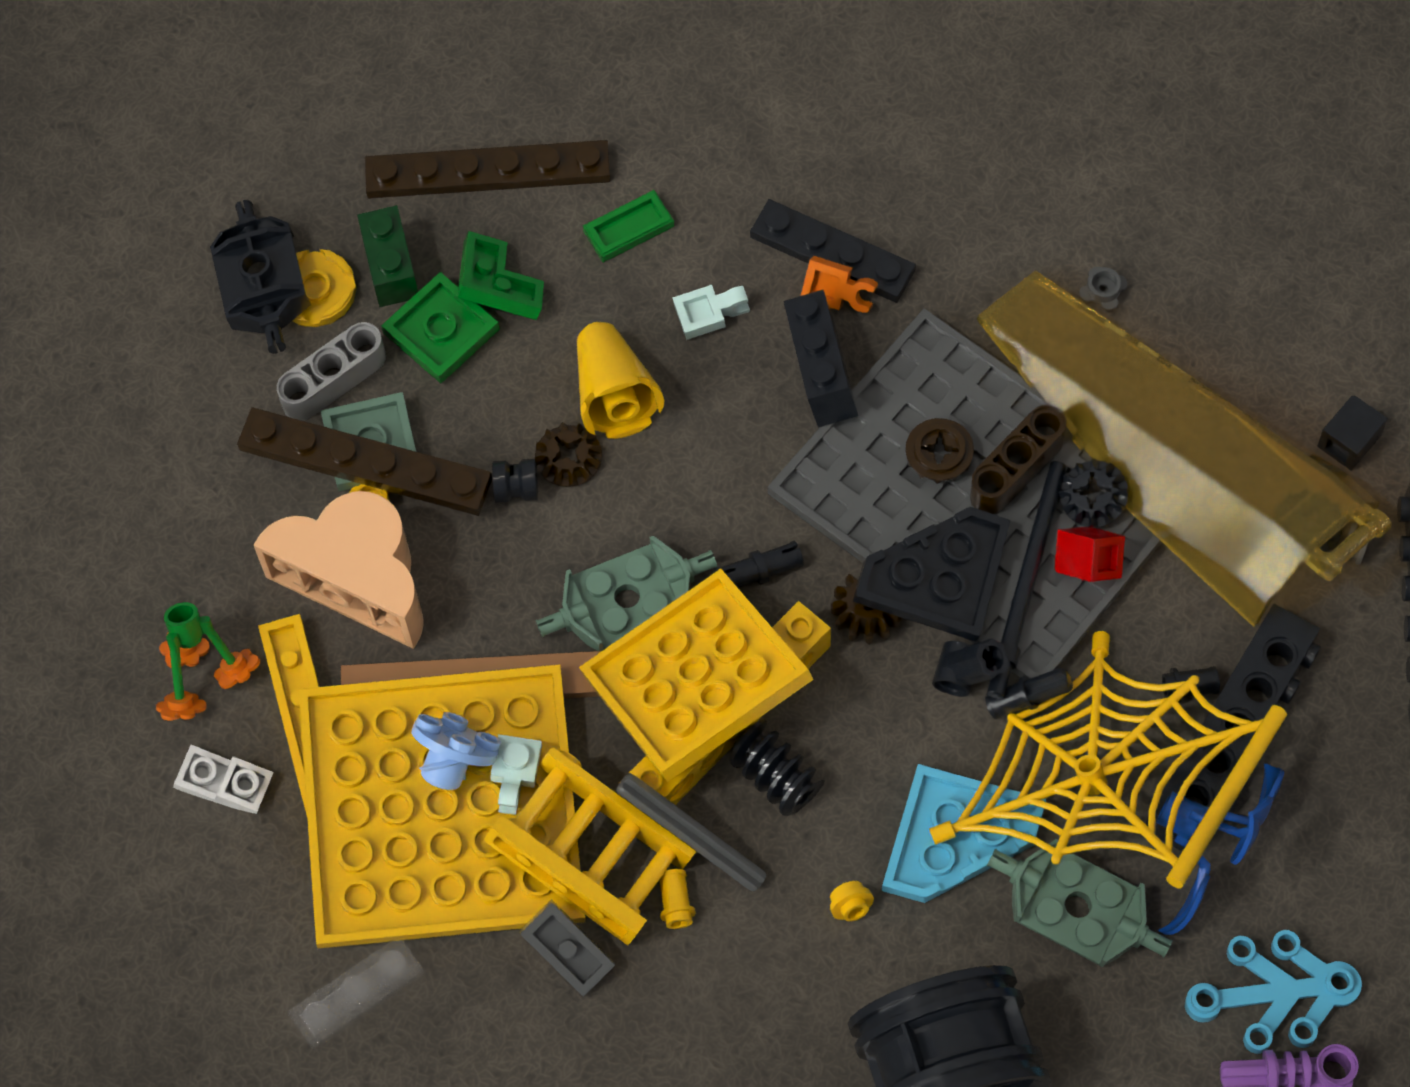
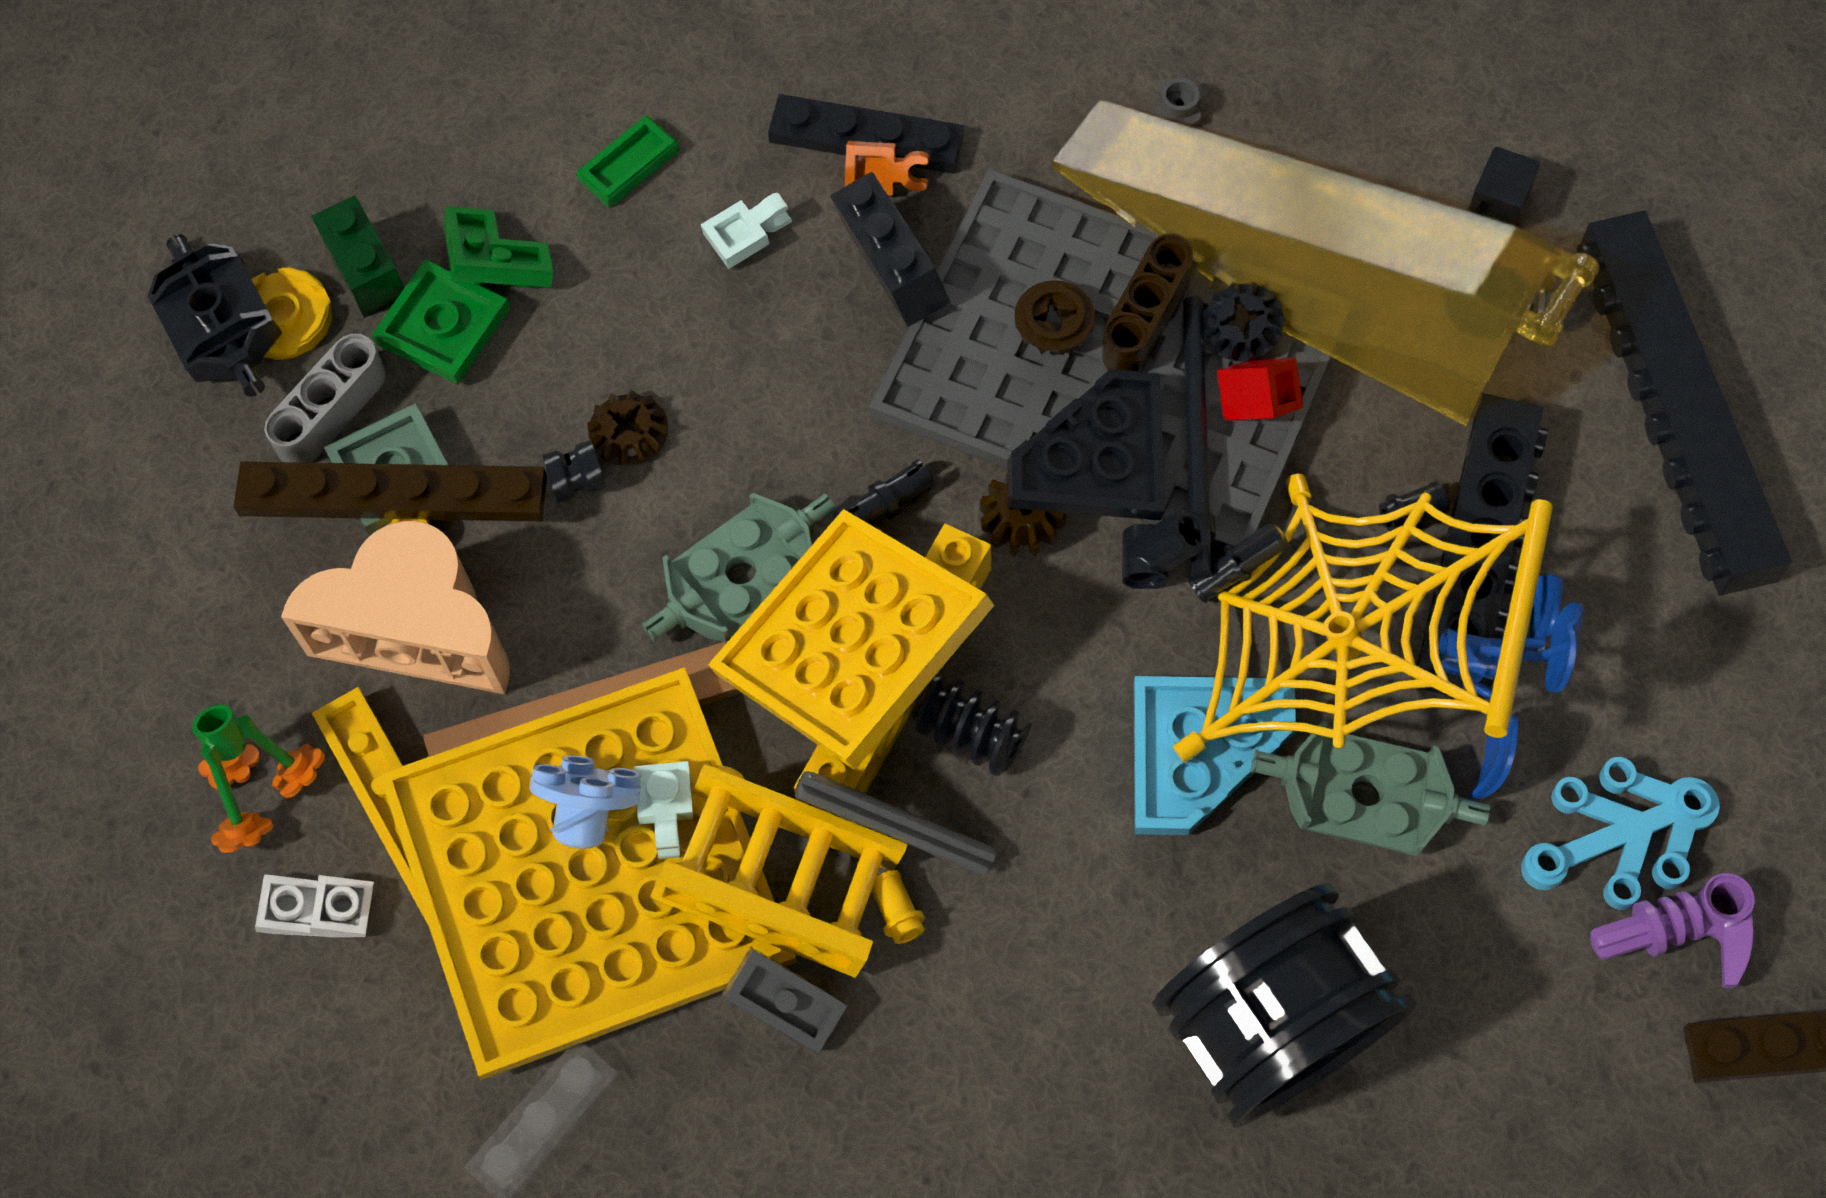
camera: 15 degrees left, 0 degrees up
(487, 169) = (448, 137): dark brown plate -> none
(614, 384) = (661, 335): yellow cone -> none
(850, 901) = (1103, 855): yellow plate -> none

